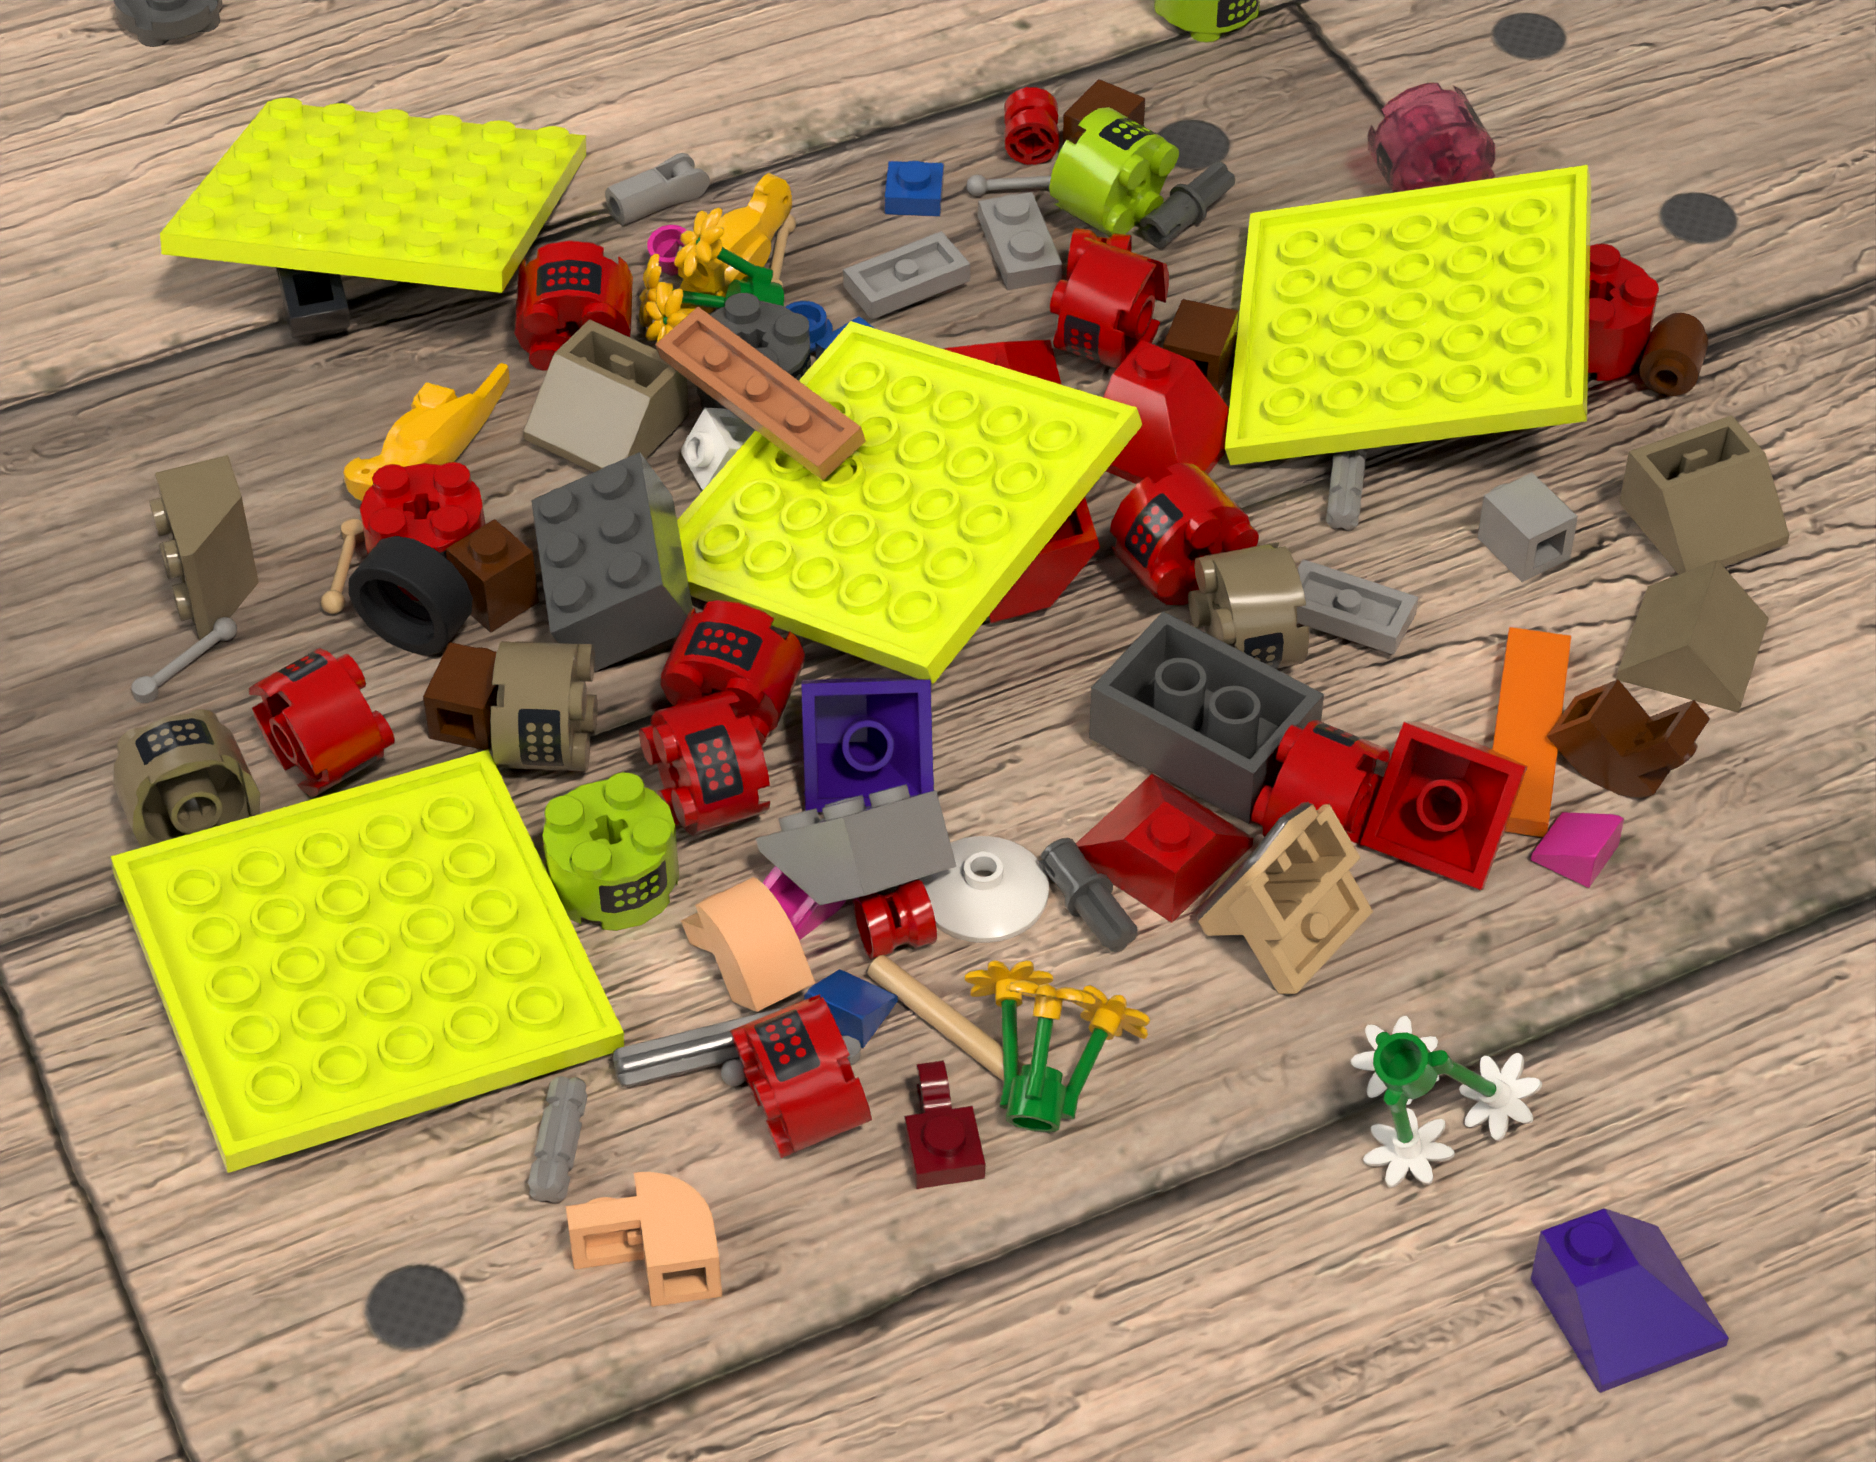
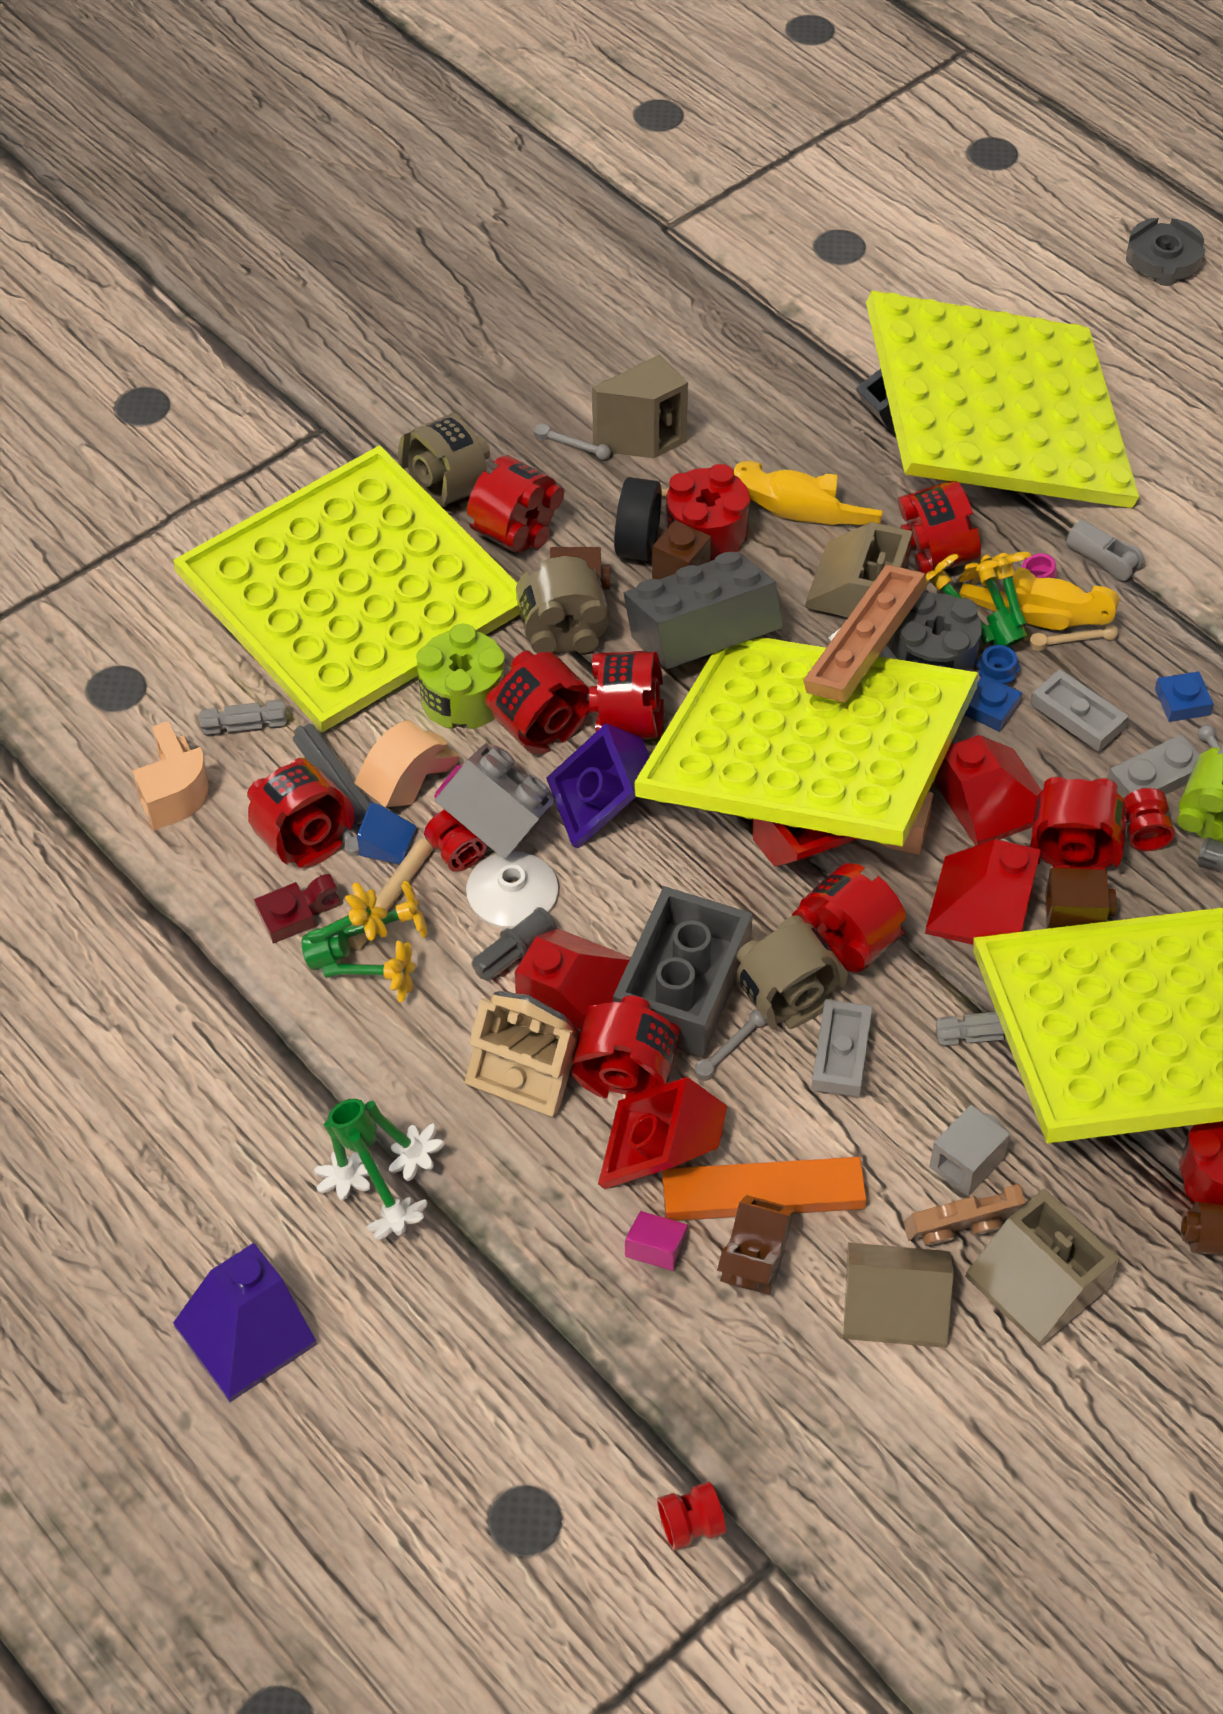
camera: 75 degrees right, 5 degrees up
(1624, 539) = (982, 1215): none -> medium nougat wing

